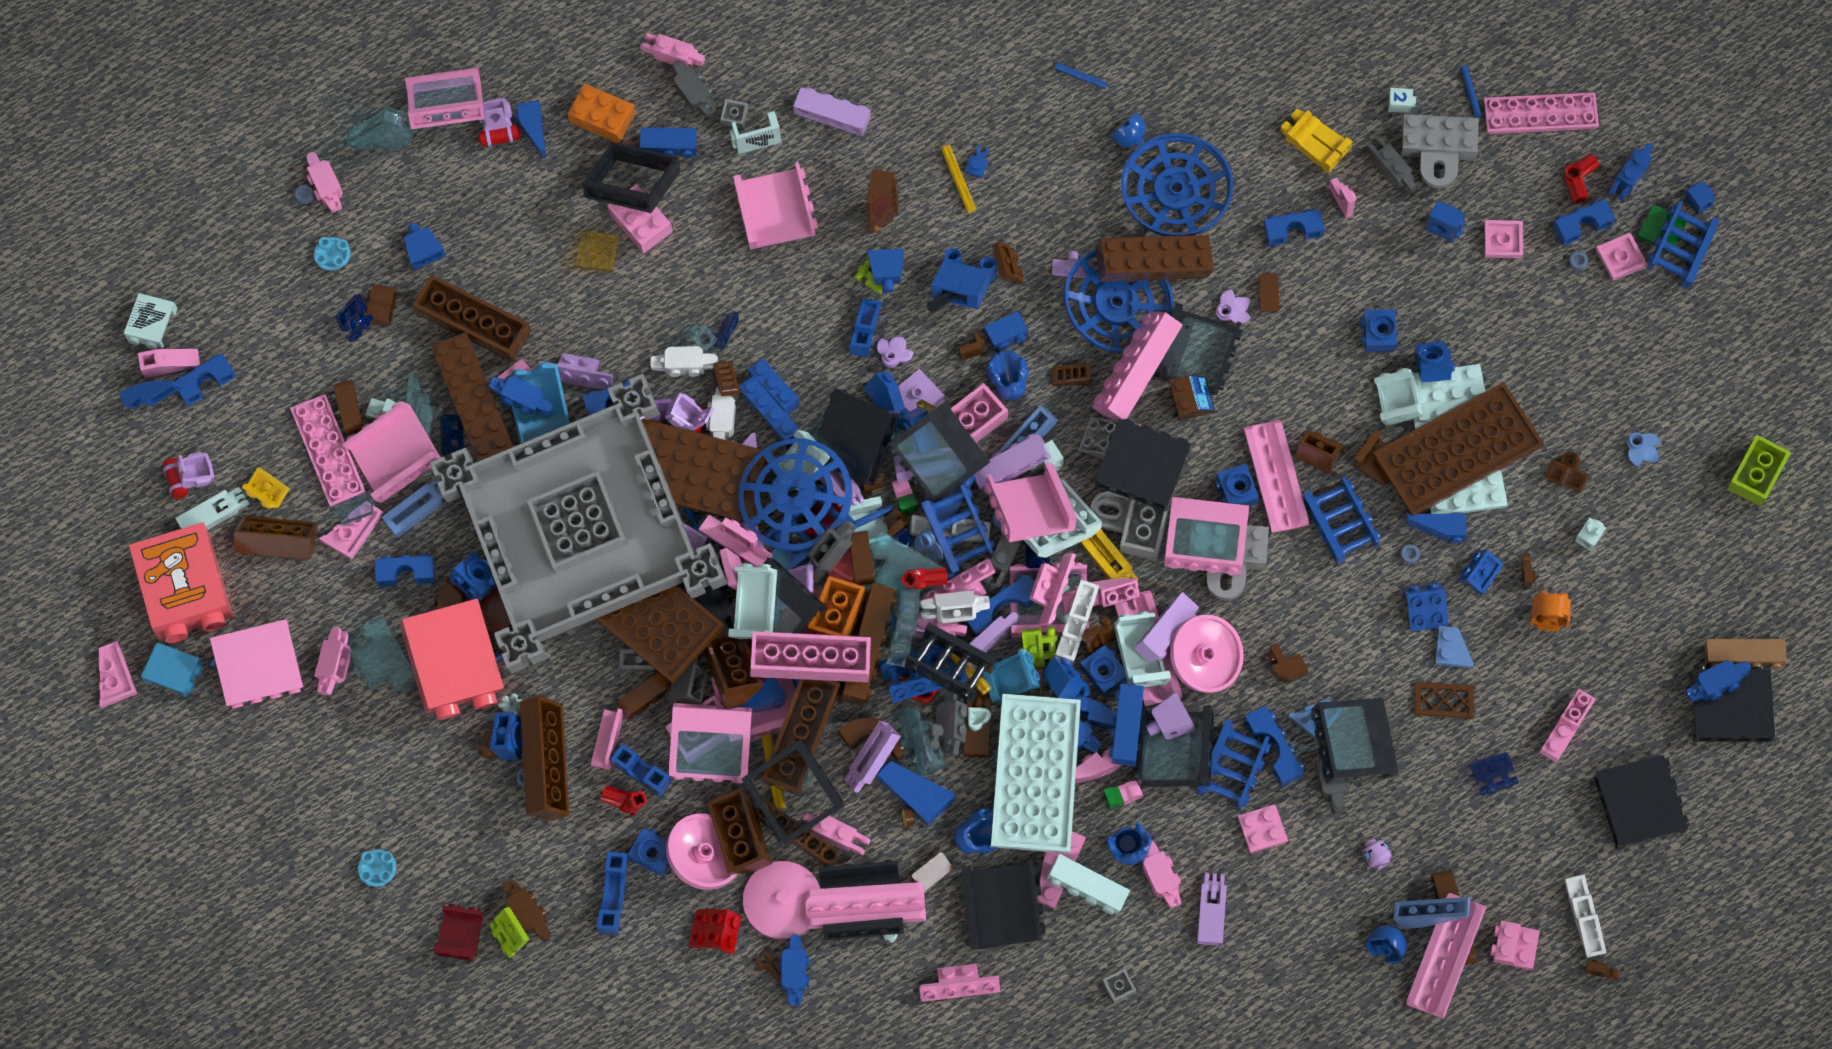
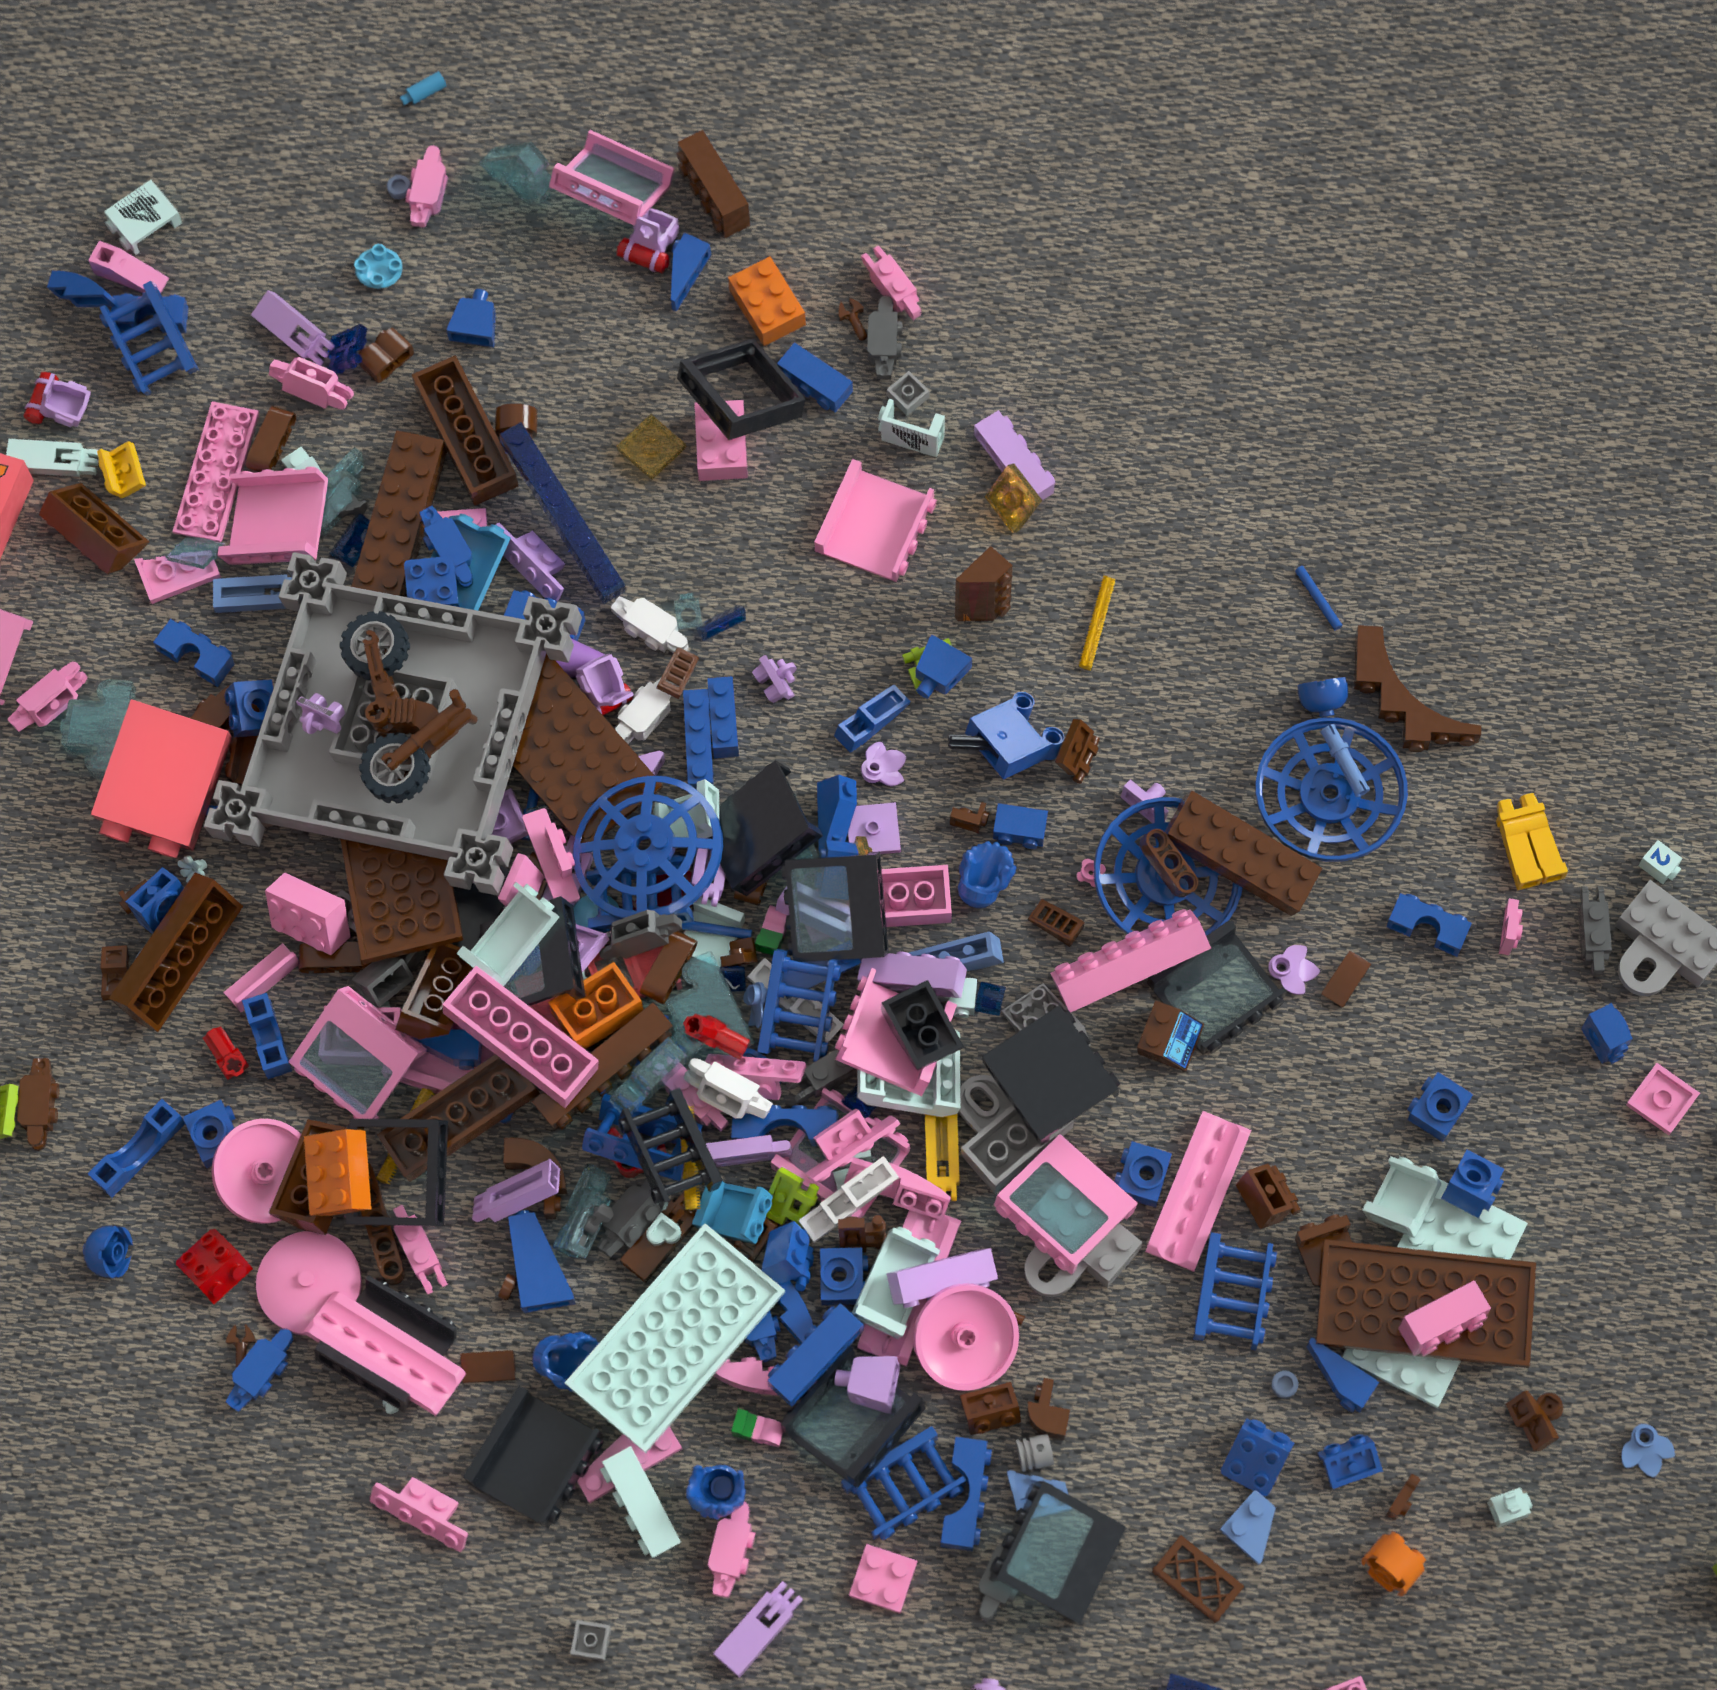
camera: 35 degrees right, 0 degrees up
(236, 385) = (161, 318): none -> blue fence
(271, 121) = (423, 89): none -> dark azure cylinder
(299, 327) = (283, 321): none -> lavender hinge
(348, 353) = (311, 383): none -> bright pink hinge
(502, 293) = (512, 414): none -> reddish brown piece
(510, 799) = (113, 967): none -> reddish brown slope
(511, 61) = (713, 184): none -> reddish brown brick
(529, 422) = (432, 580): none -> blue bracket
(531, 550) = (317, 717): none -> lavender hips
(577, 328) = (562, 513): none -> clear blue brick
(584, 513) = (401, 755): none -> piece
(611, 678) = (307, 913): none -> bright pink brick
(642, 967) = (107, 1250): none -> blue cylinder
(662, 89) = (853, 318): none -> reddish brown bar
(759, 815) = (337, 1172): none -> orange brick
(778, 341) = (768, 670): none -> lavender hips
(851, 135) = (1013, 498): none -> clear yellow plate
(977, 164) = (1129, 620): blue plate -> none
(1044, 487) = (921, 1025): none -> black slope
(1064, 328) = (1083, 875): none -> bright pink plate
(1067, 447) = (990, 998): none -> clear blue slope
(1107, 292) = (1168, 850): none -> reddish brown beam
(1173, 161) = (1348, 766): none -> medium blue pin
(1175, 108) = (1396, 703): none -> reddish brown arch
(1251, 686) = (991, 1408): none -> reddish brown bracket
(1296, 693) = (1029, 1452): none -> light grey piece
(1479, 449) = (1444, 1319): none -> bright pink brick

